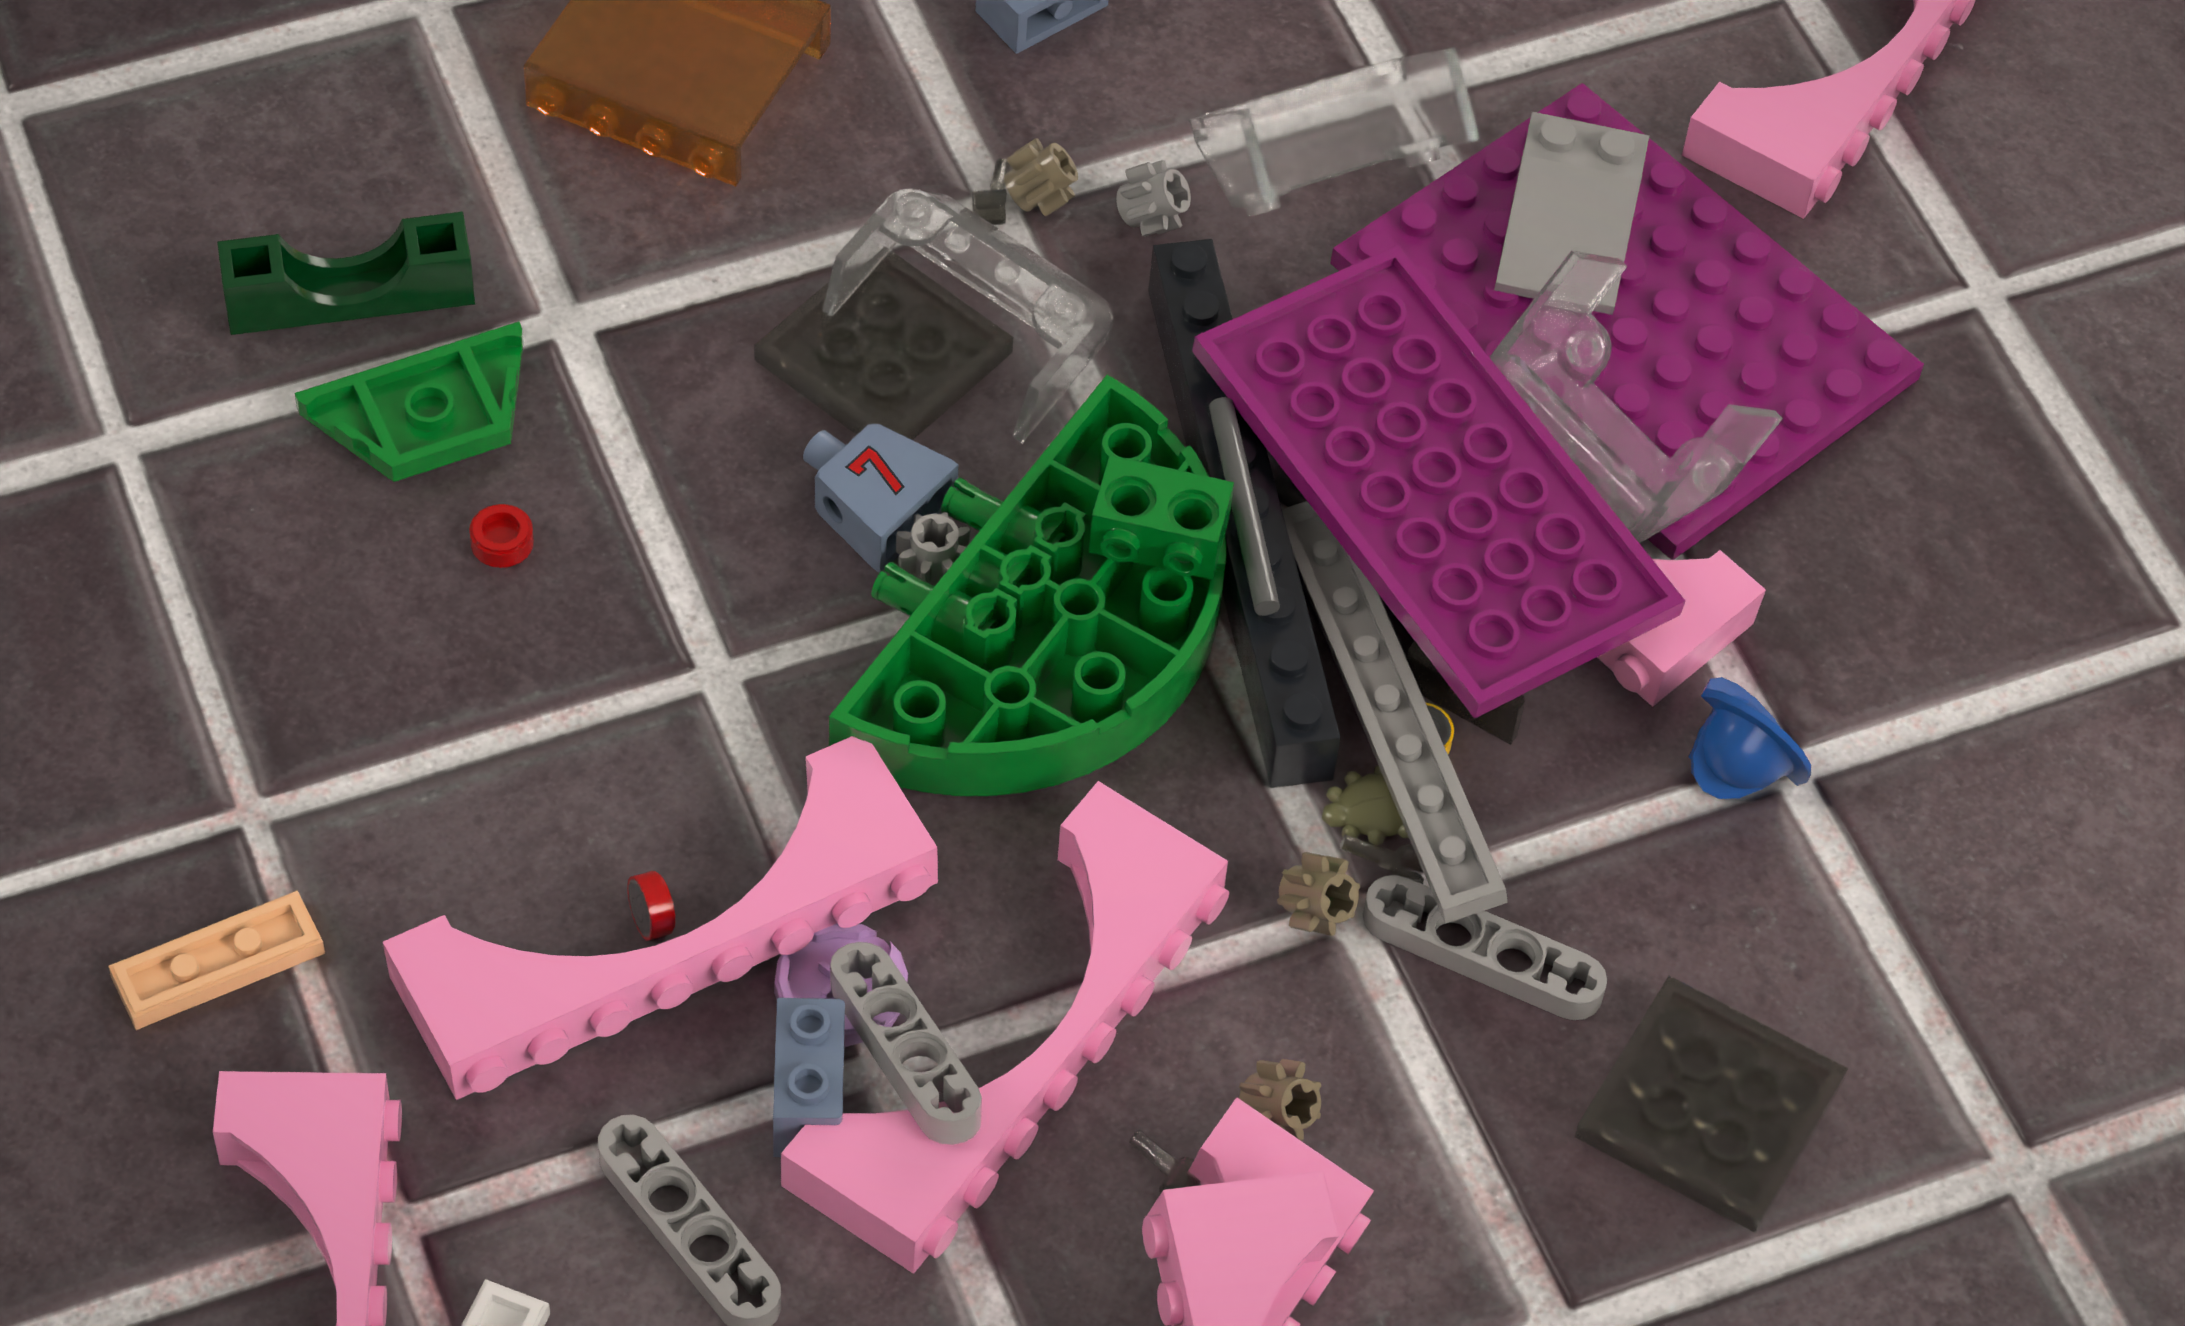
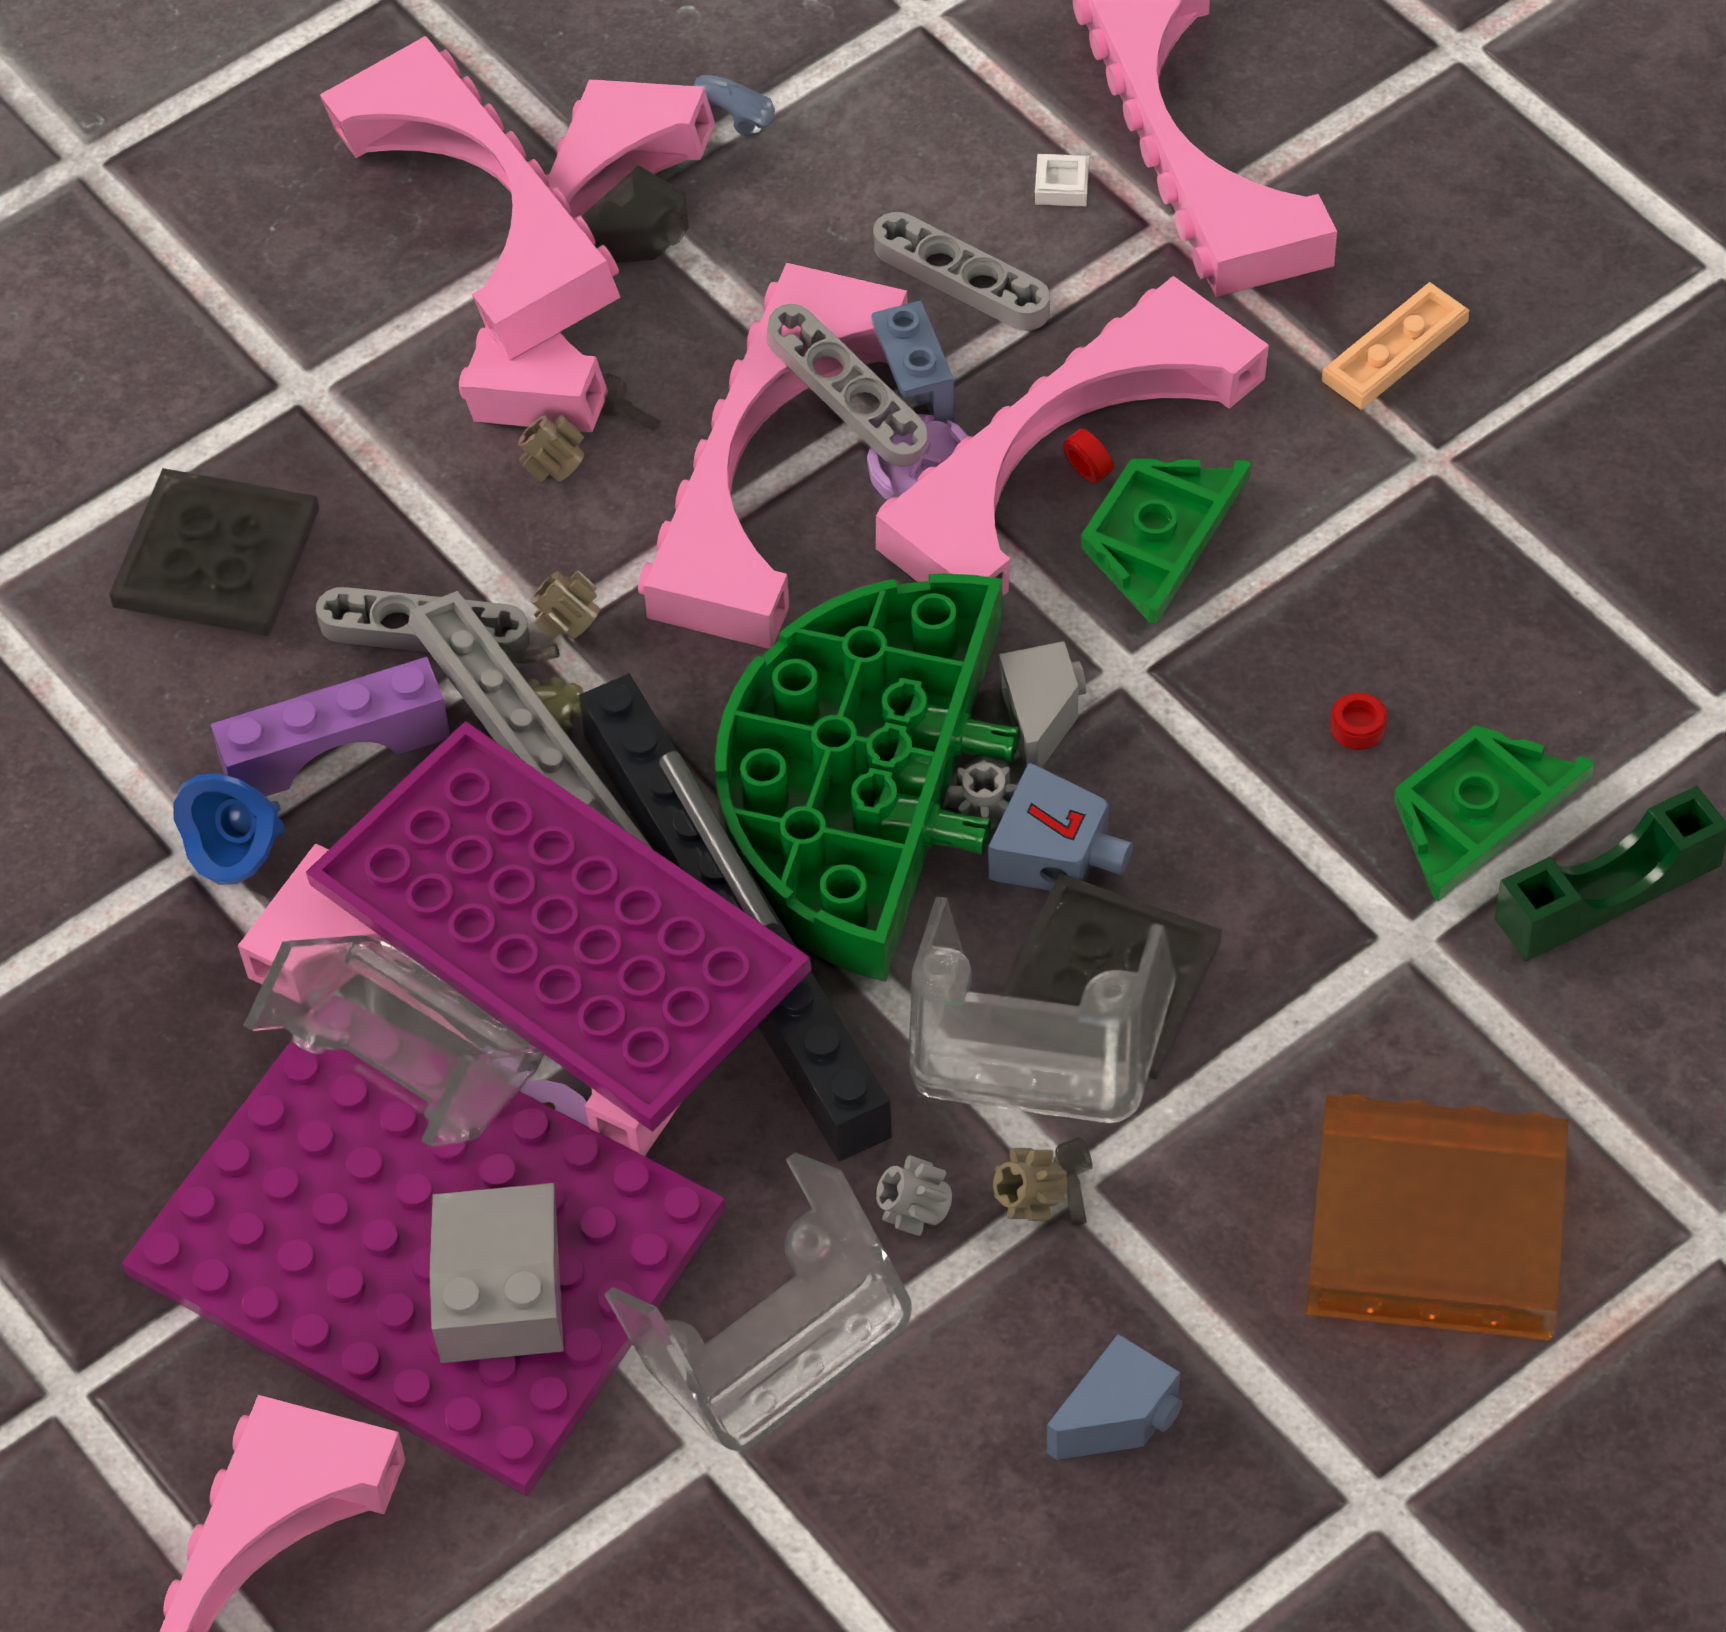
camera: 170 degrees right, 0 degrees up
(604, 804) = (1159, 526): none -> green wing
(828, 633) = (1040, 697): none -> light grey slope
(1162, 511) = (784, 799): green brick -> none
(1549, 819) = (389, 707): none -> medium lavender arch

